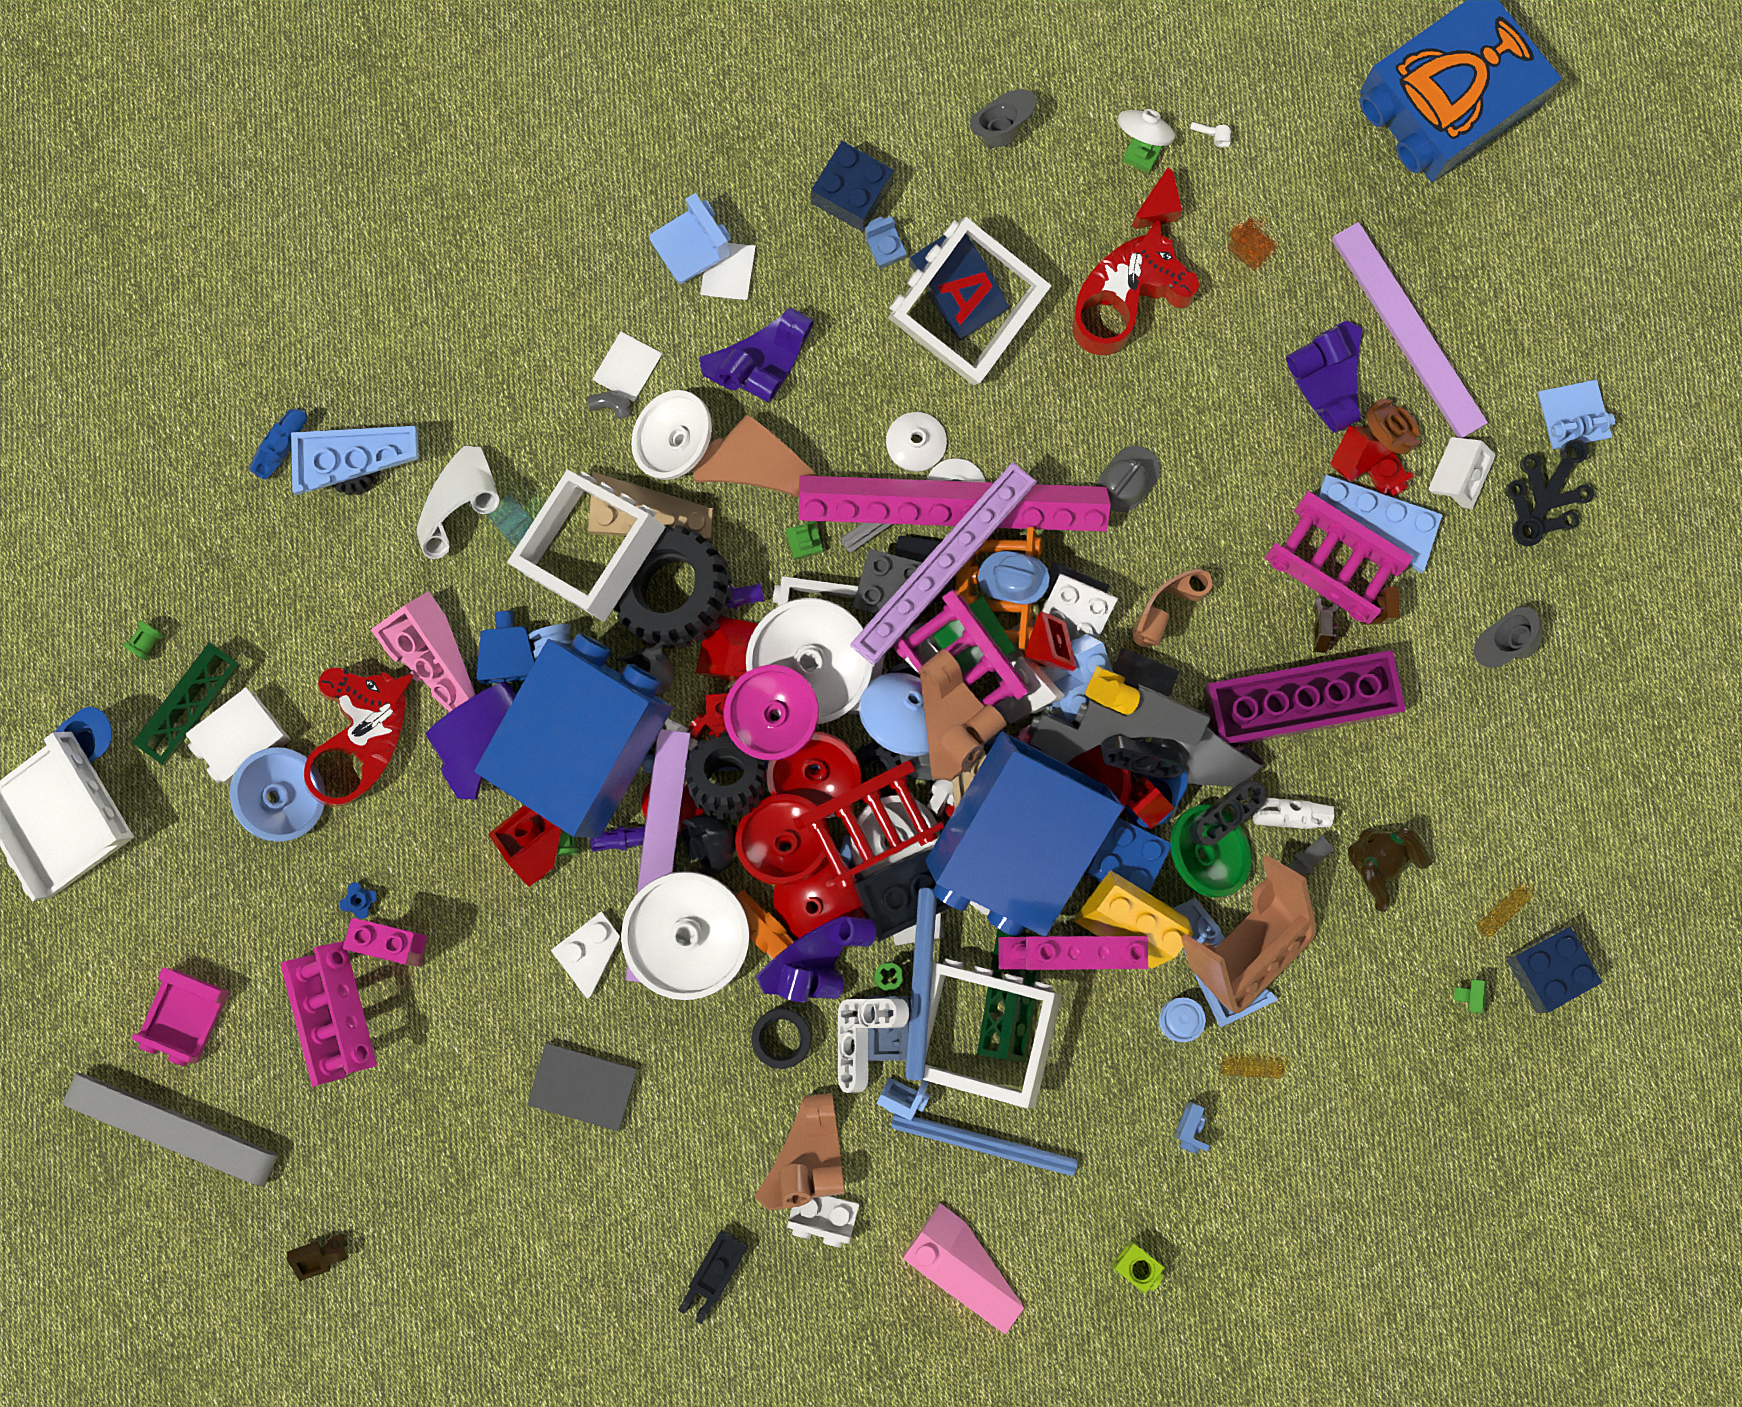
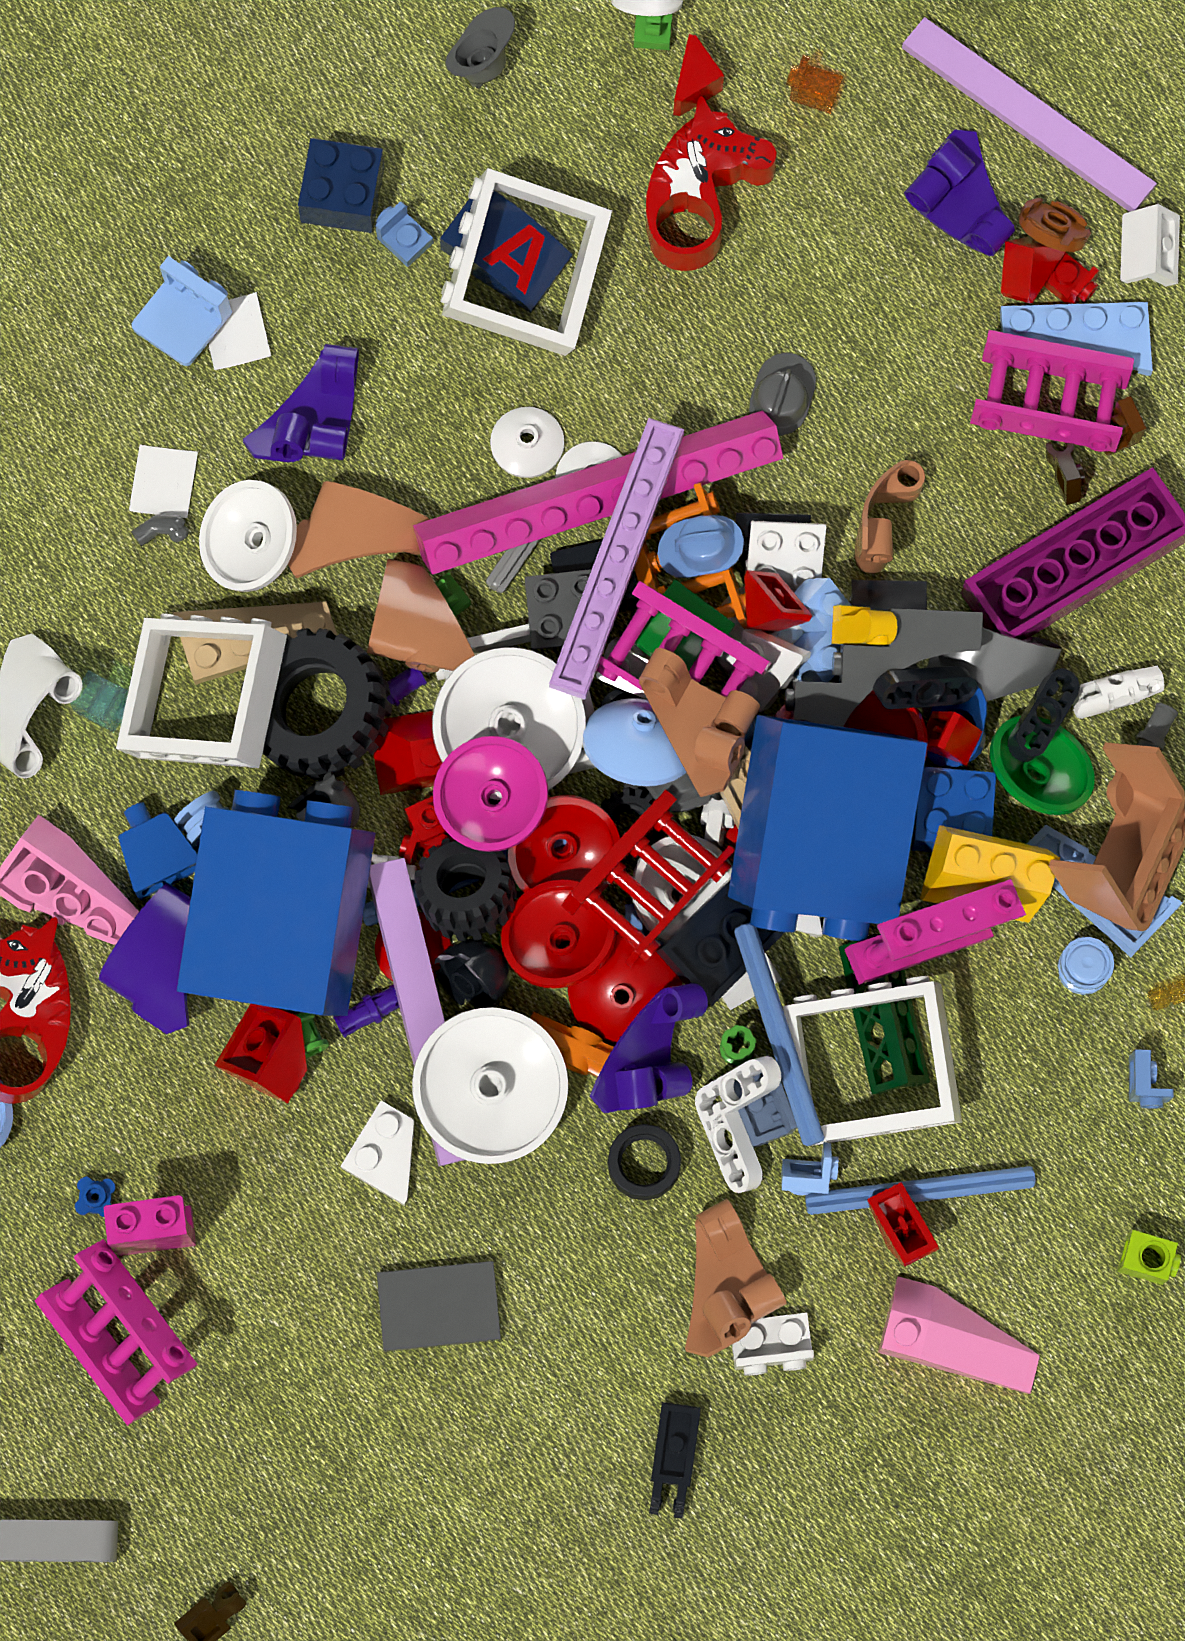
camera: 20 degrees left, 5 degrees down
(771, 551) = (416, 622): none -> nougat panel
(957, 1168) = (902, 1225): none -> red slope

